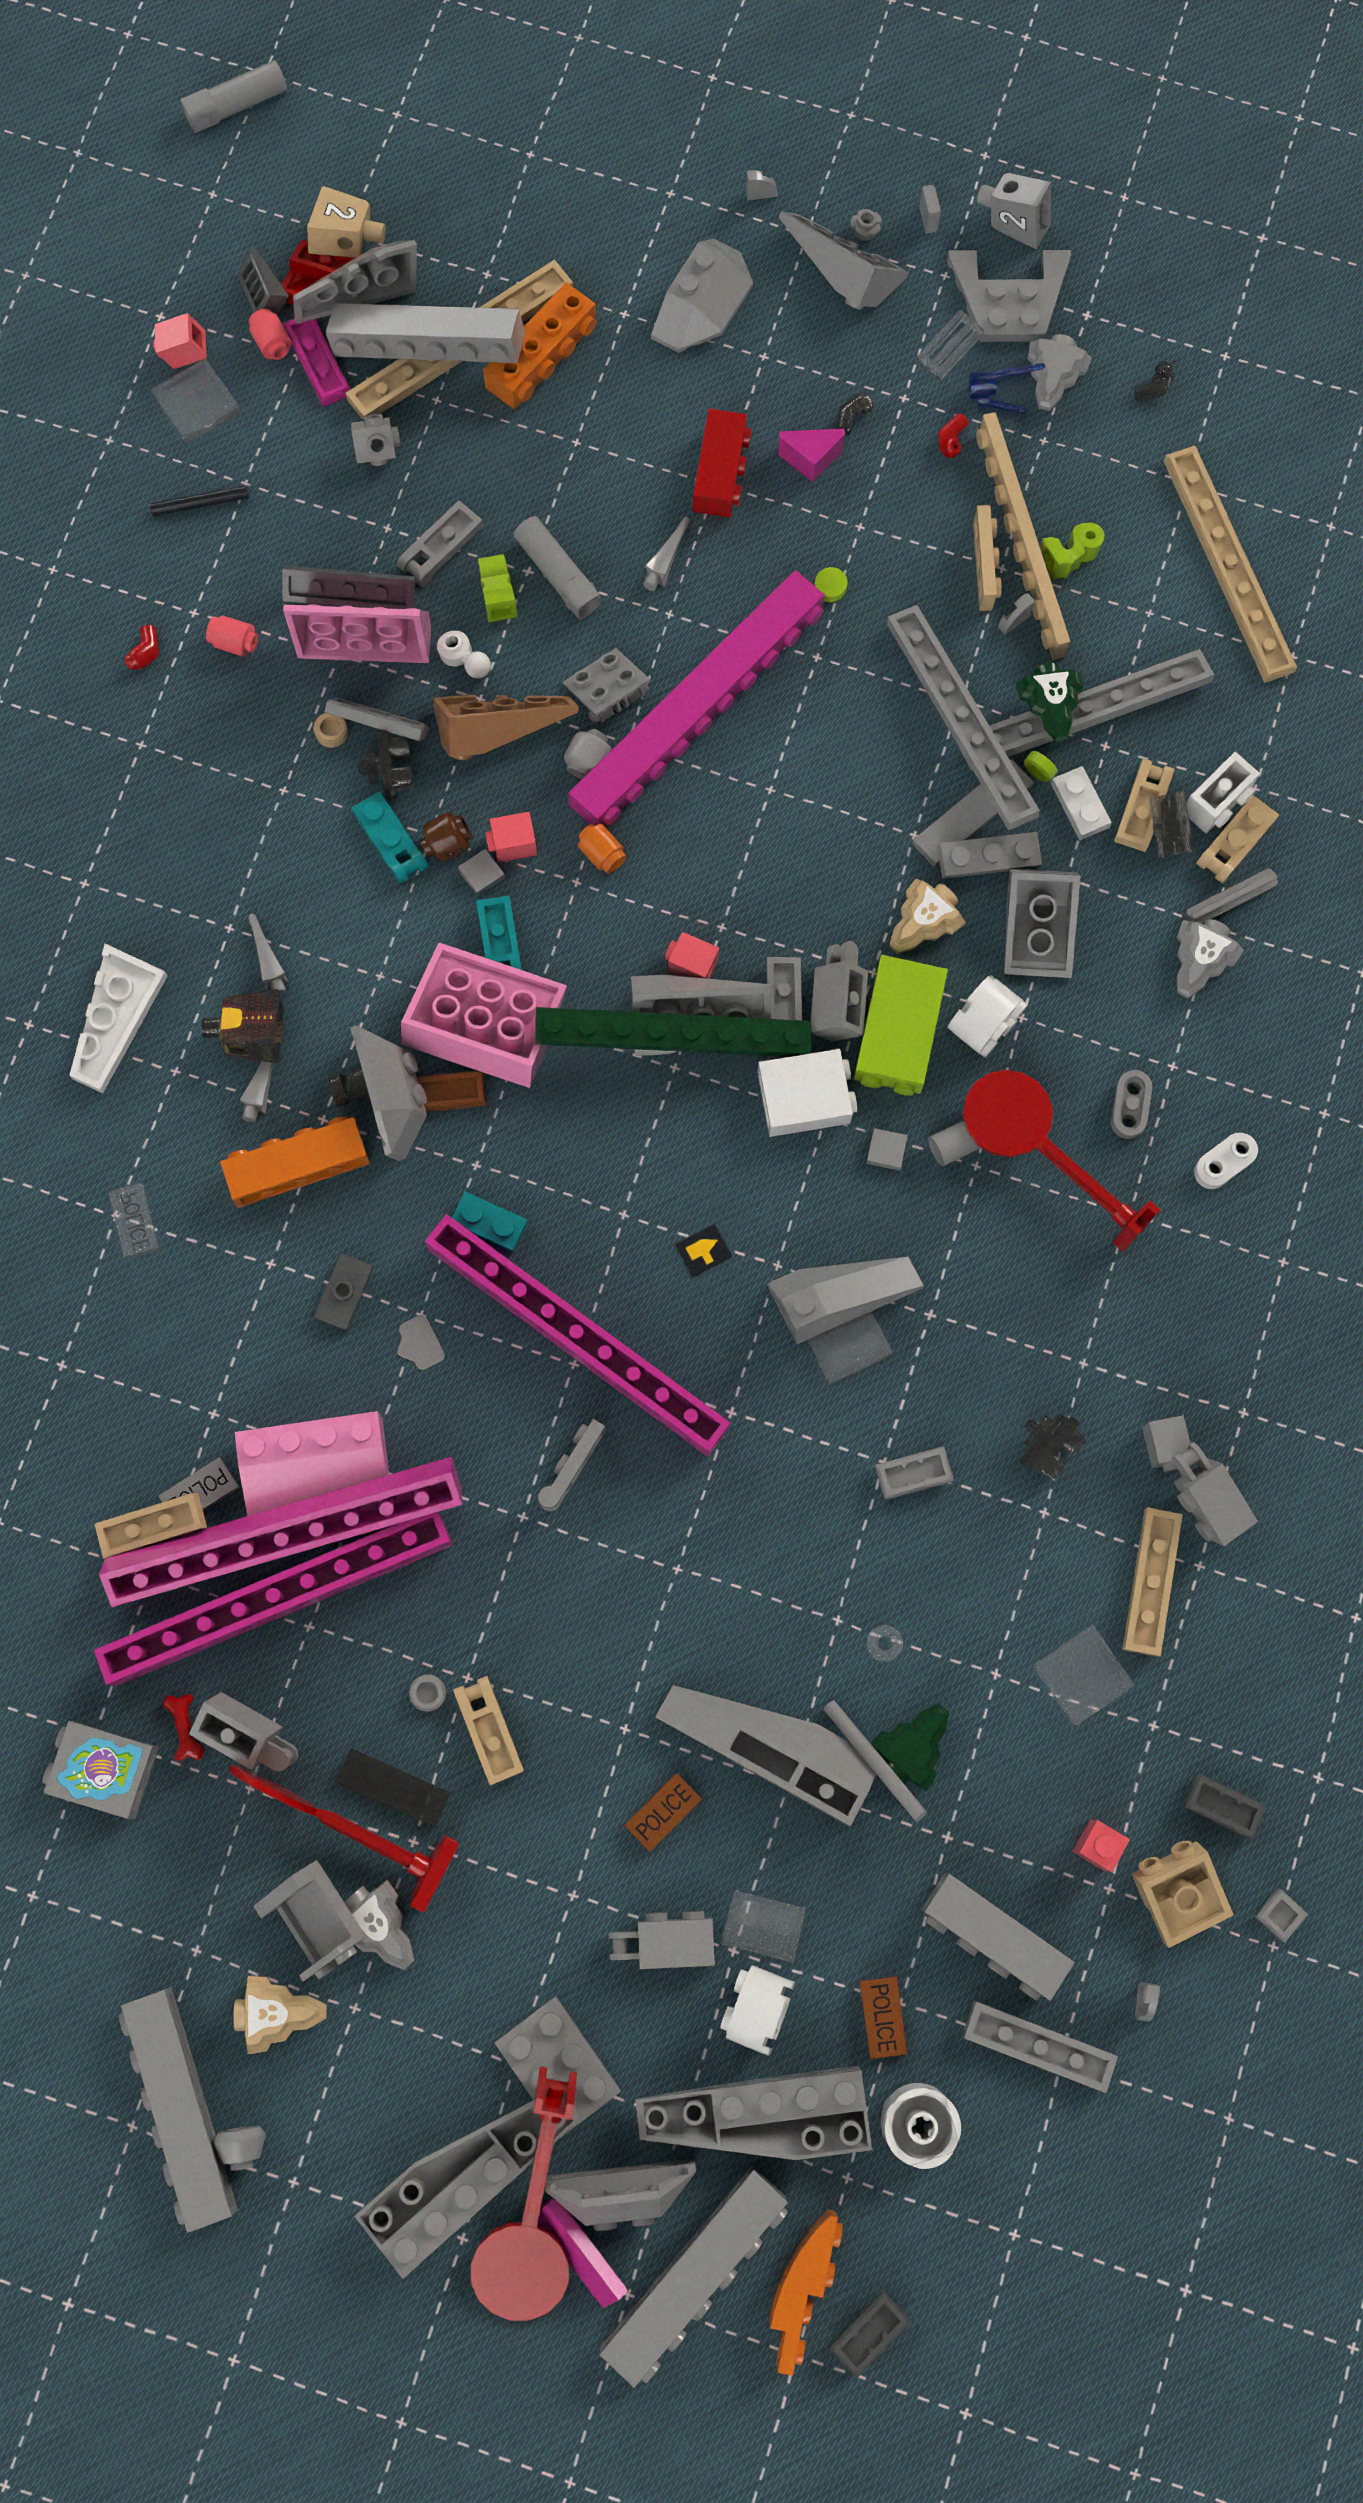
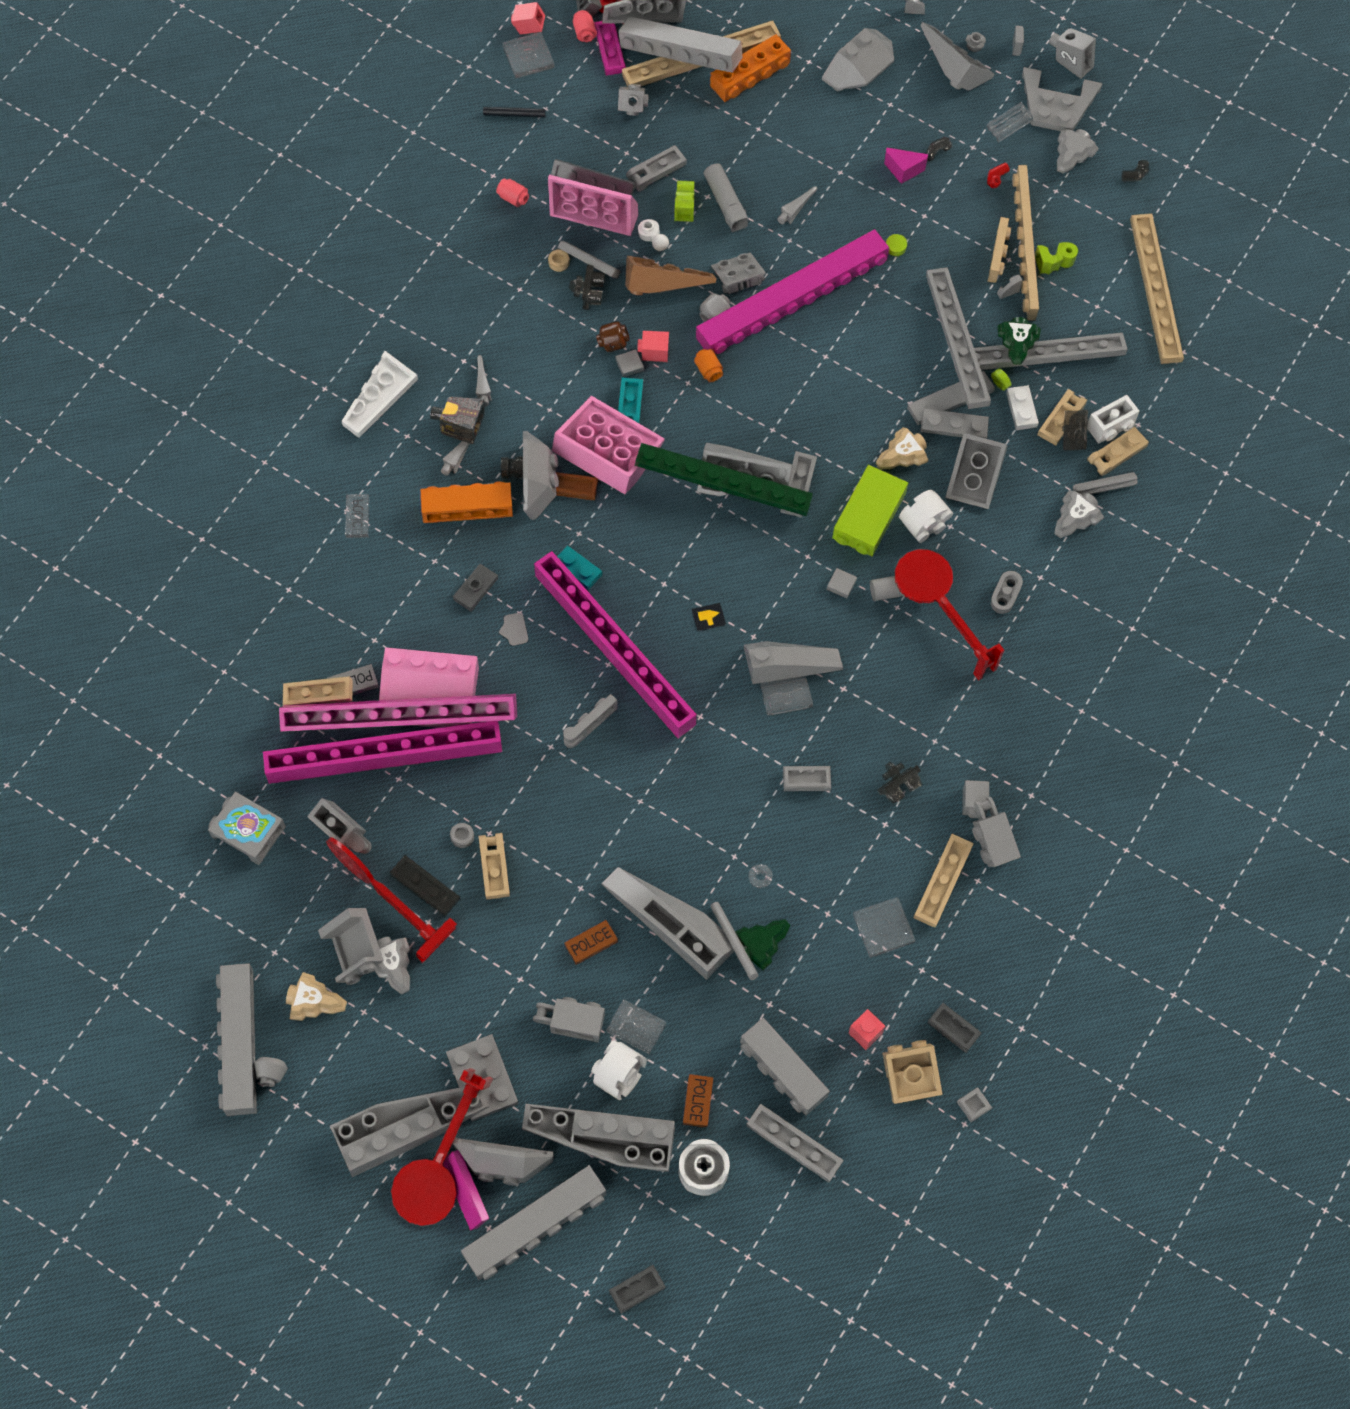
camera: 15 degrees right, 10 degrees down
(146, 651) = (456, 191): red arm -> none
(179, 1709) = (303, 829): red piece -> none
(389, 836) = (577, 330): teal plate -> none
(691, 957) = (748, 440): coral brick -> none
(721, 463) = (845, 159): red brick -> none
(804, 2275) = (605, 1240): orange slope -> none
(806, 1092) = (799, 536): white brick -> none
(839, 995) = (835, 483): light grey brick -> none
(984, 384) = (1025, 149): clear blue plant -> none
(1146, 2001) = (871, 1133): light grey tile -> none
(1227, 1159) = (1061, 641): white plate -> none

